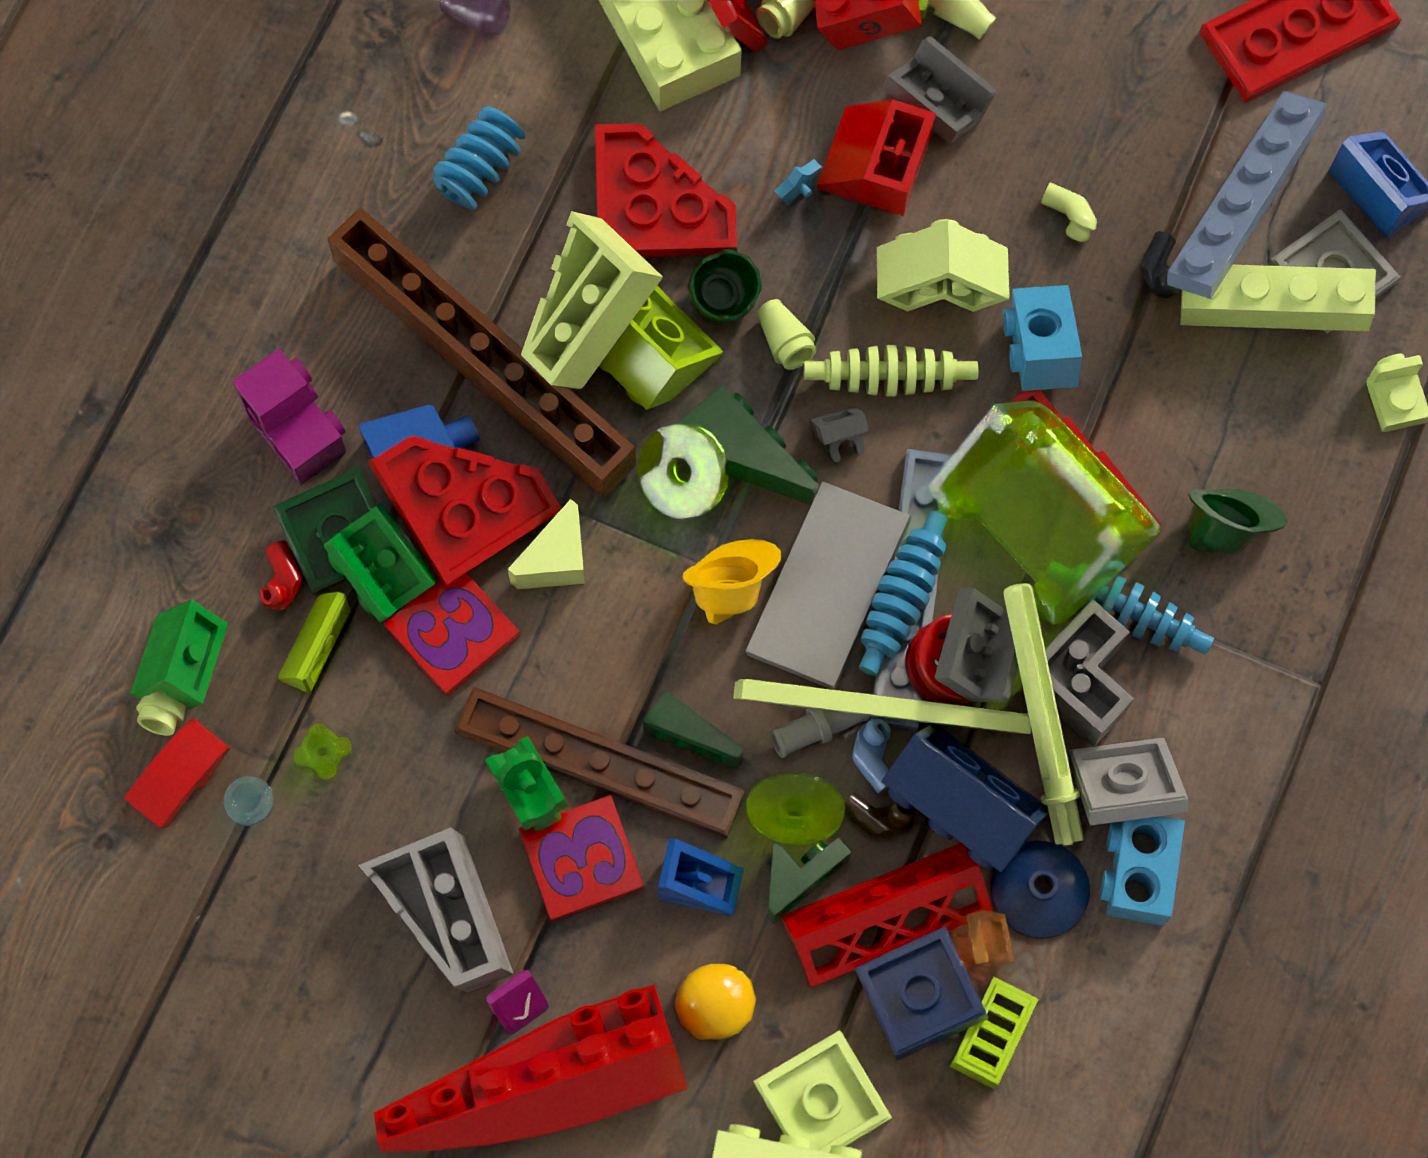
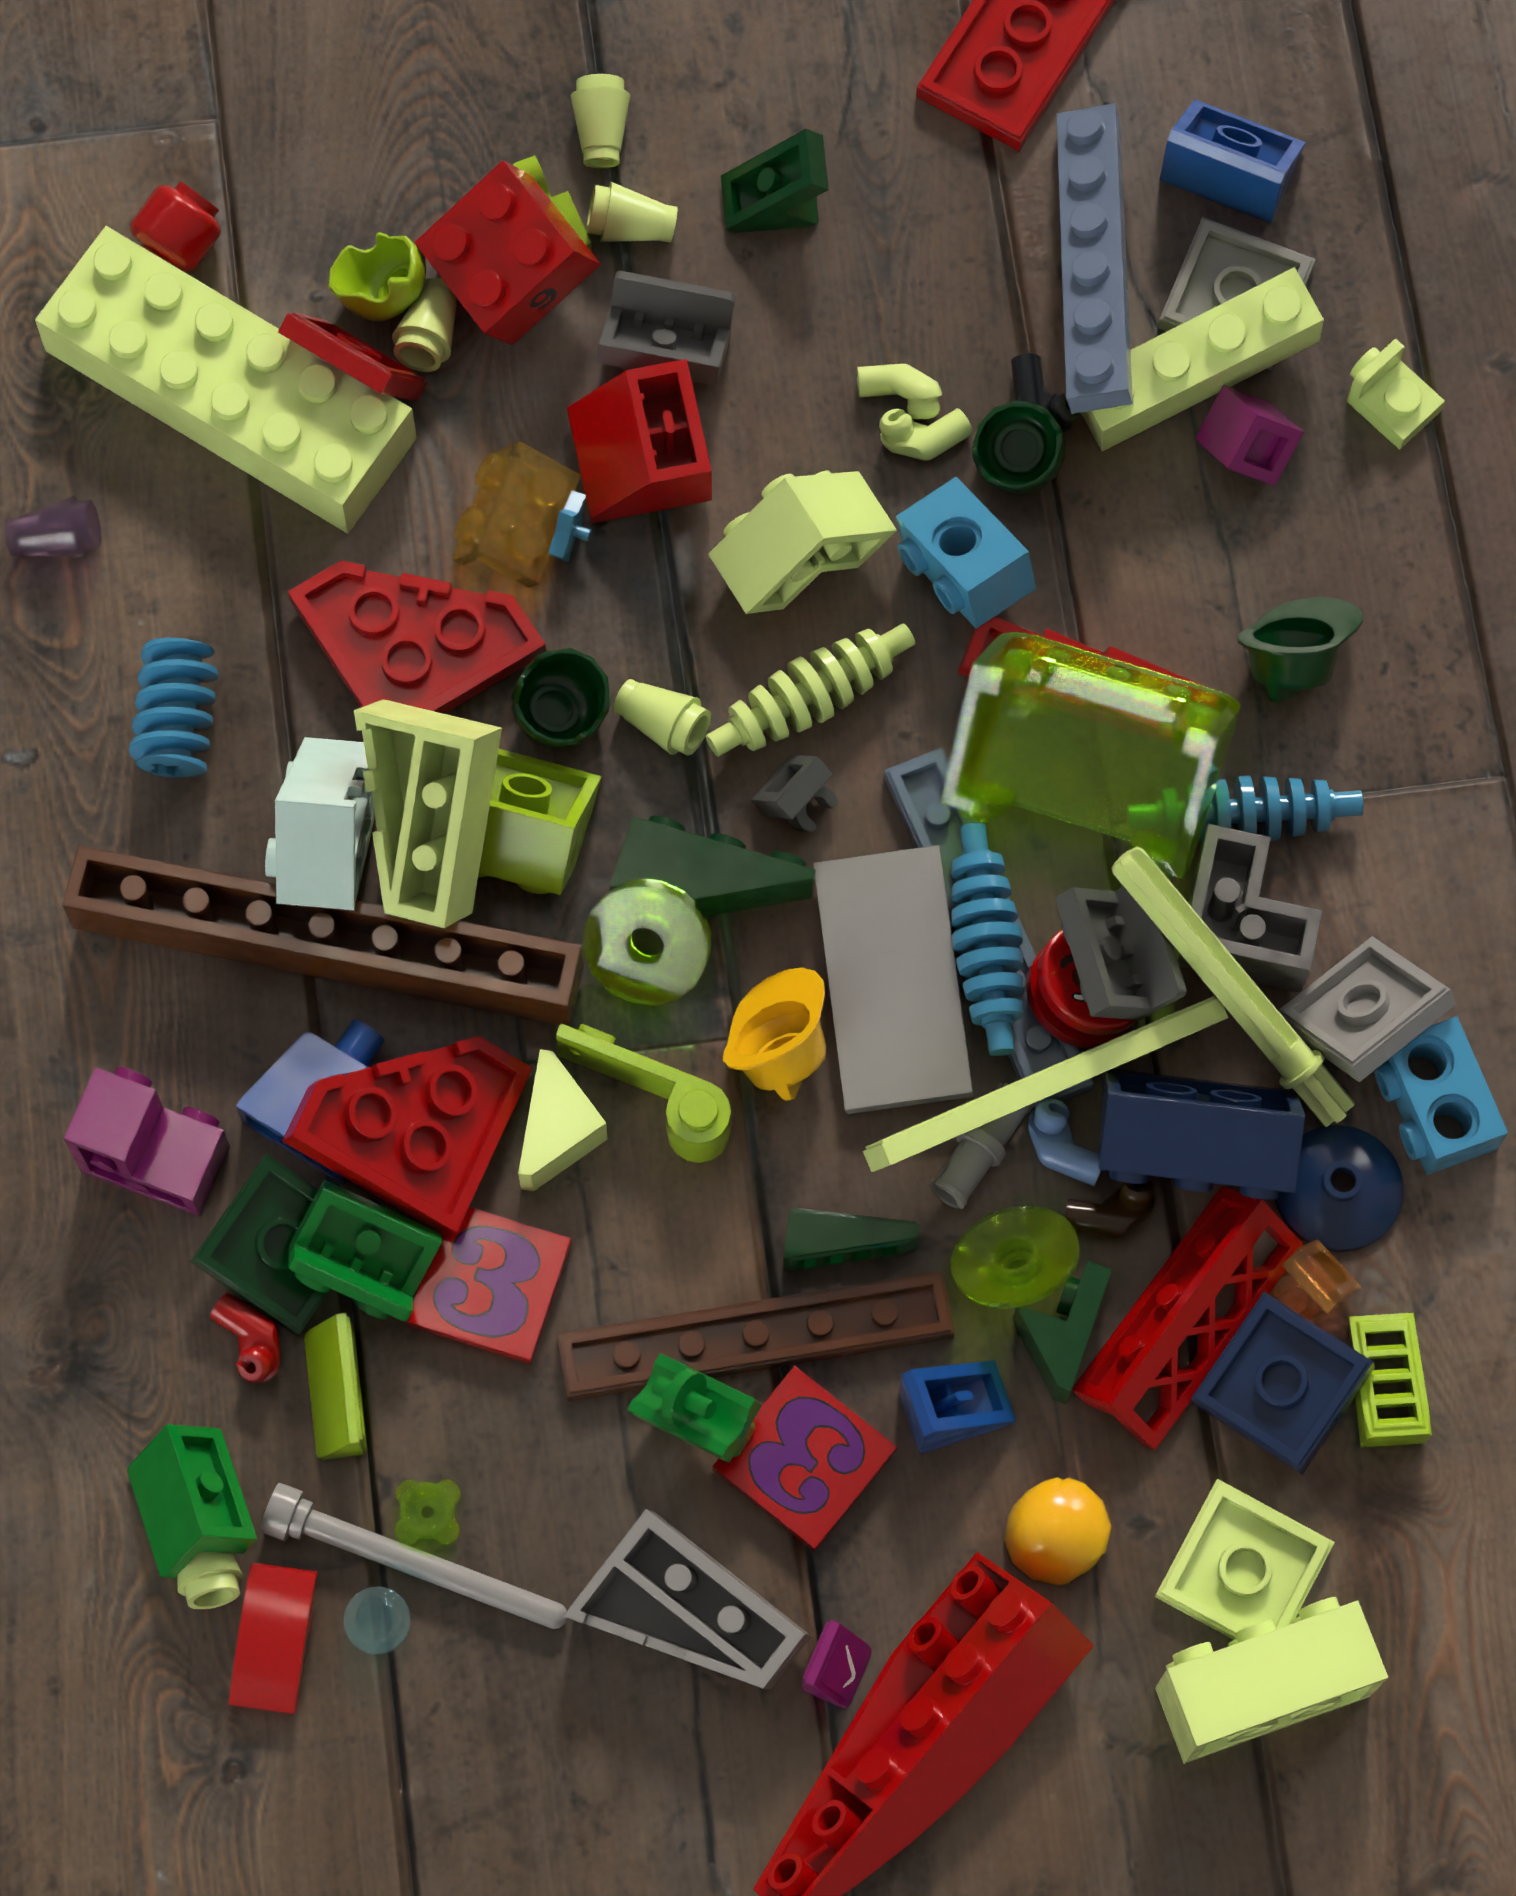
camera: 30 degrees left, 0 degrees up
(236, 702) = (293, 1516): none -> light grey piece
(511, 278) = (321, 826): none -> light aqua wedge
(644, 593) = (696, 1109): none -> lime door
(770, 154) = (514, 512): none -> clear yellow bracket
(1062, 252) = (921, 441): none -> yellowish green arm
(1068, 39) = (777, 186): none -> dark green slope
(1123, 290) = (1018, 447): none -> dark green hair
(1283, 366) = (1249, 435): none -> magenta panel

